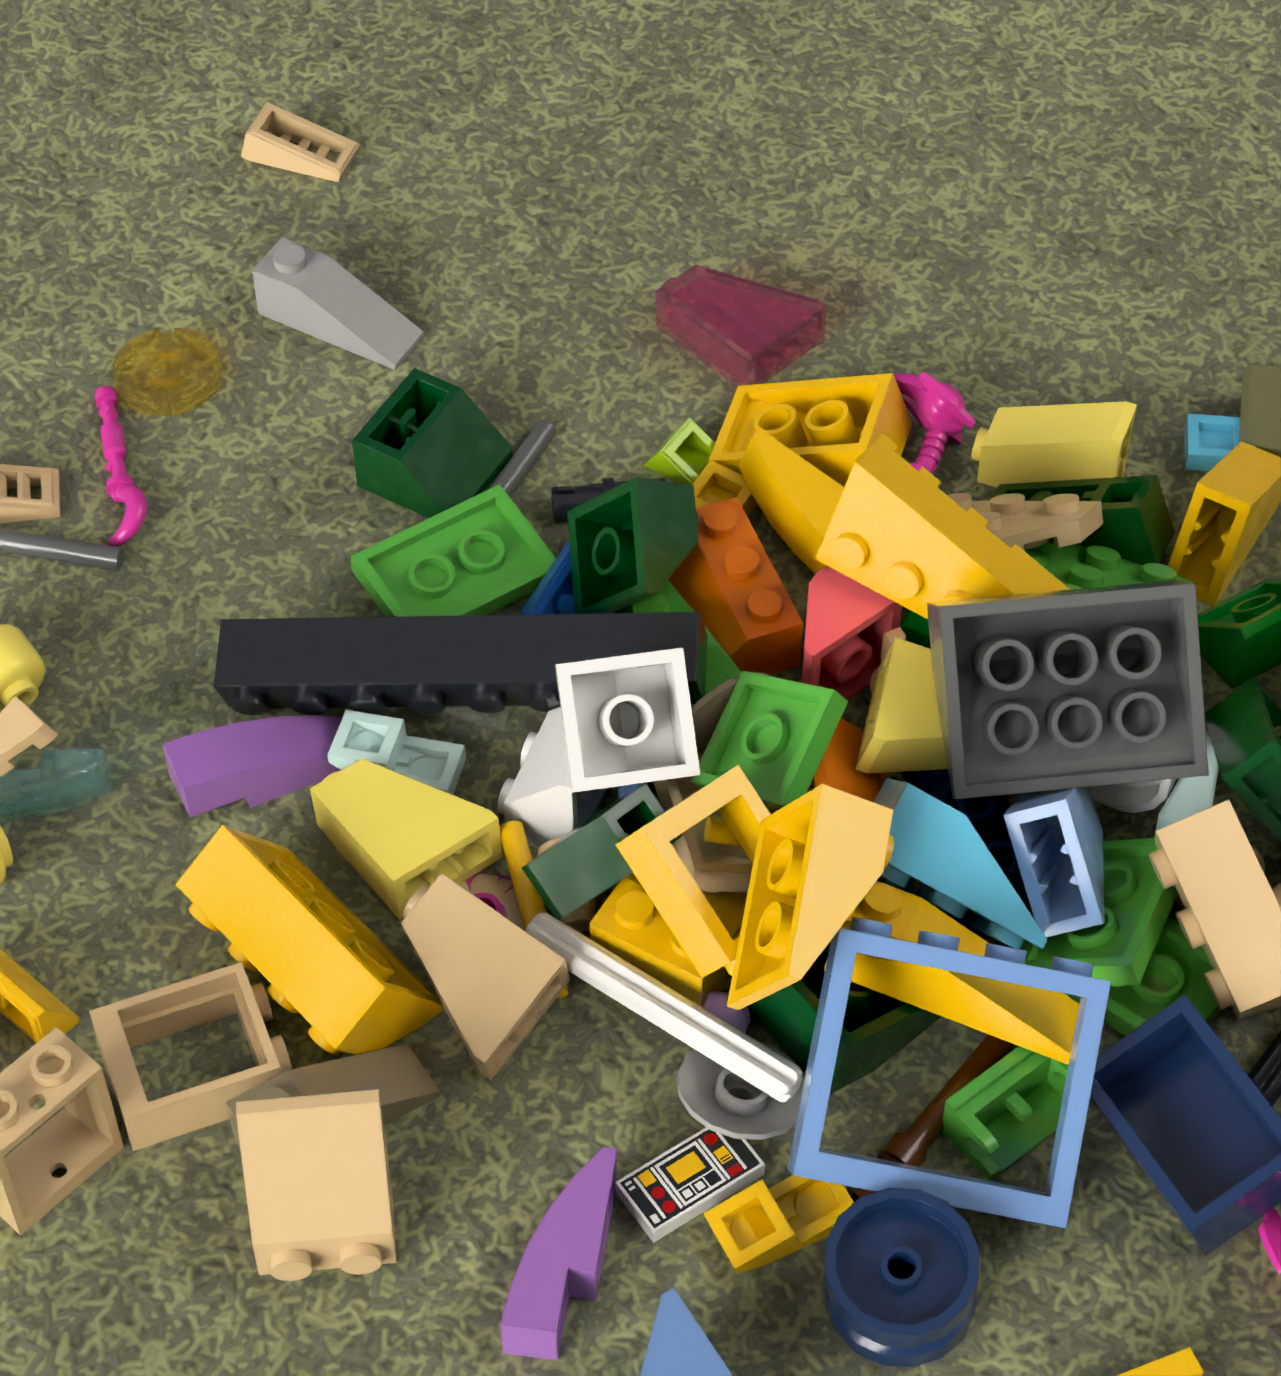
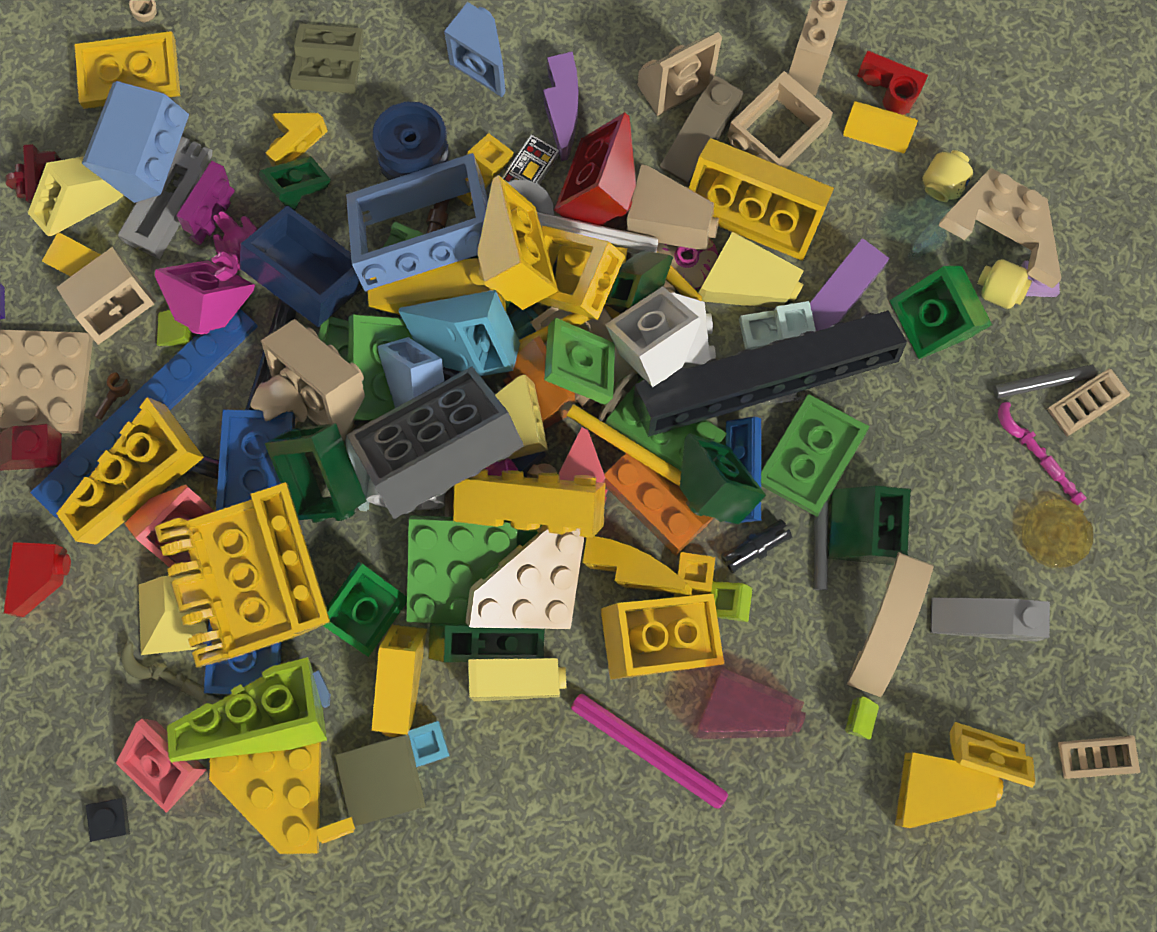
camera: 155 degrees right, 25 degrees up
(124, 673) = (940, 311): none -> green slope
(442, 331) = (892, 625): none -> tan slope
(446, 162) = (991, 754): none -> yellow slope
(525, 171) = (941, 790): none -> yellow slope
(569, 1071) = (600, 175): none -> red slope
(584, 276) = (862, 717): none -> lime slope
(734, 625) = (625, 444): none -> yellow bar
(884, 327) = (649, 751): none -> dark pink axle
(938, 410) = (592, 683): dark pink piece -> none
(1161, 1307) = (295, 180): none -> dark green slope

